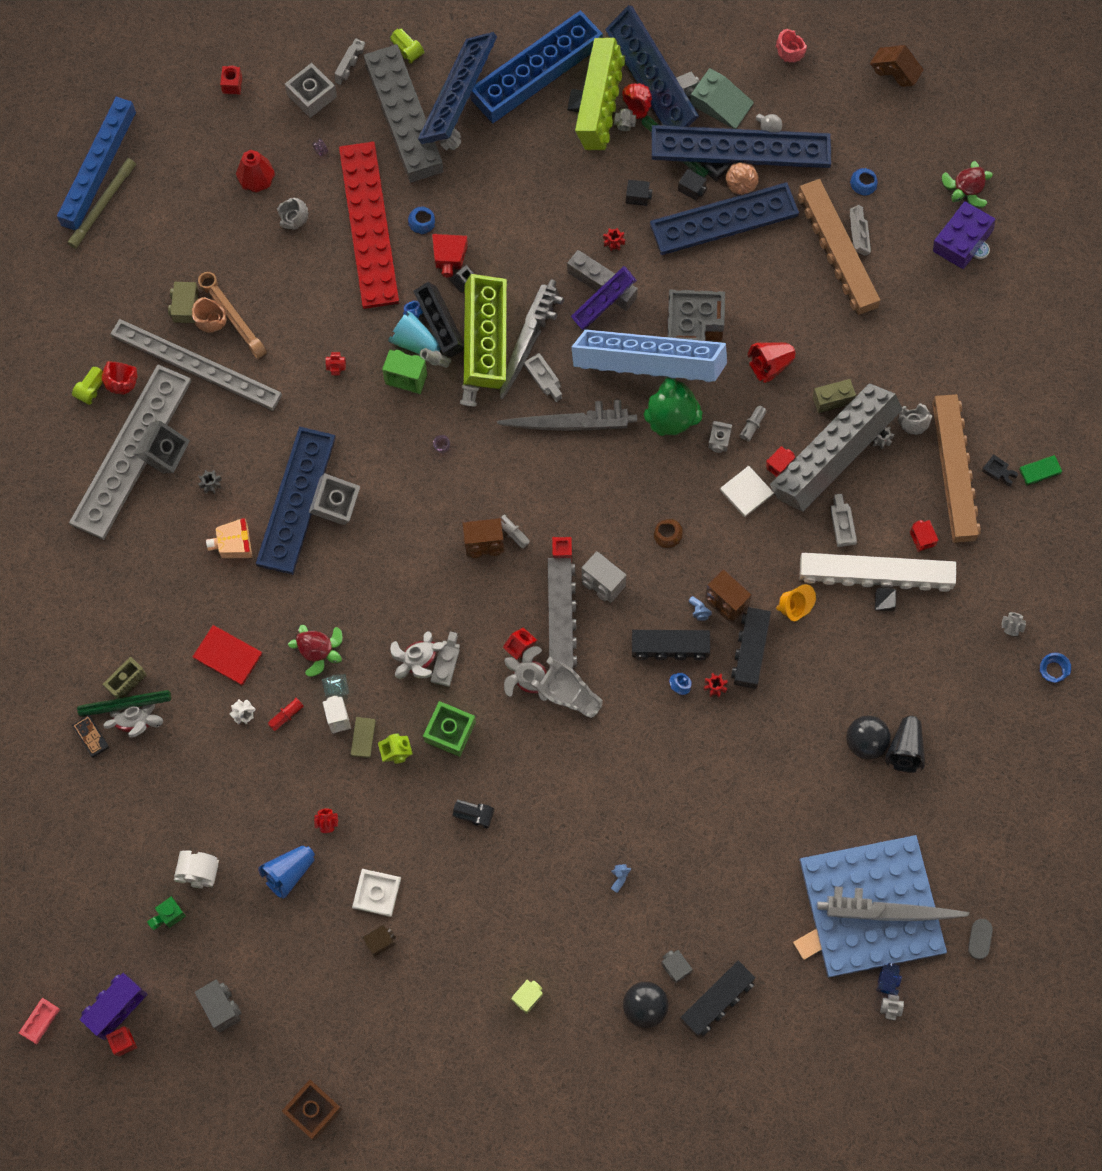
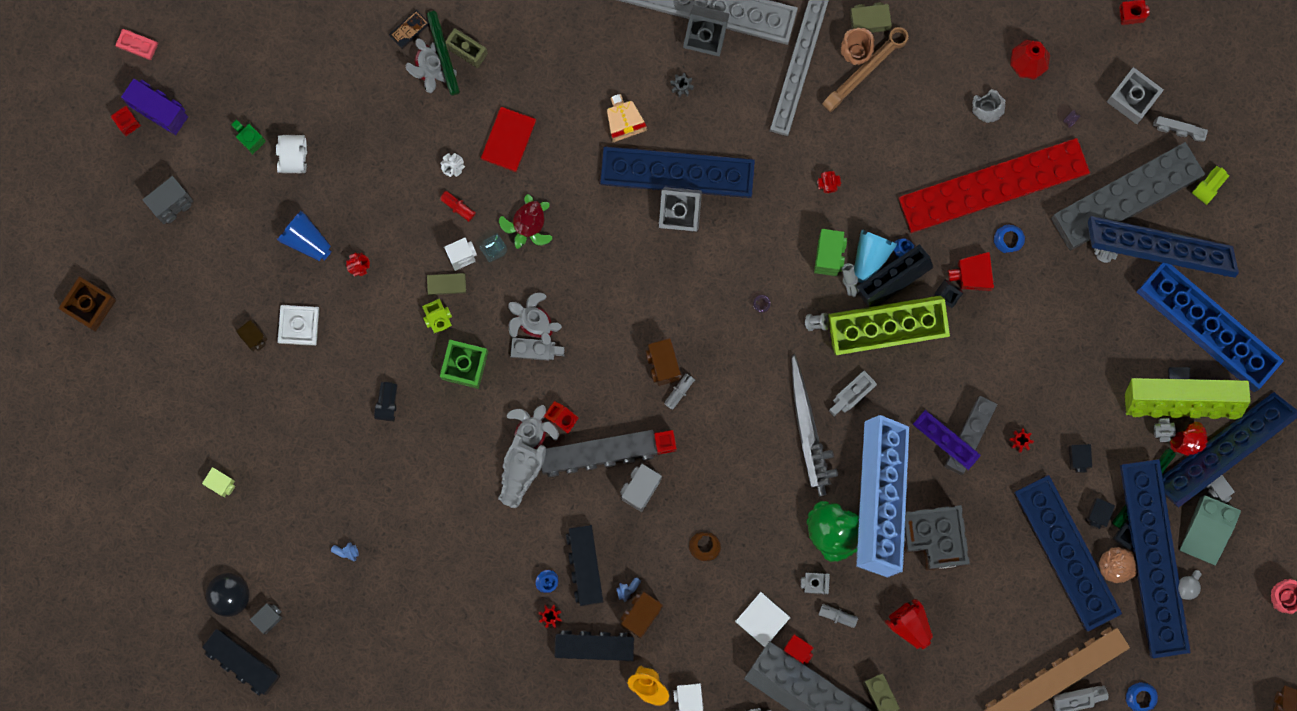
camera: 80 degrees right, 10 degrees up
(538, 313) = (902, 372): flat silver piece -> none

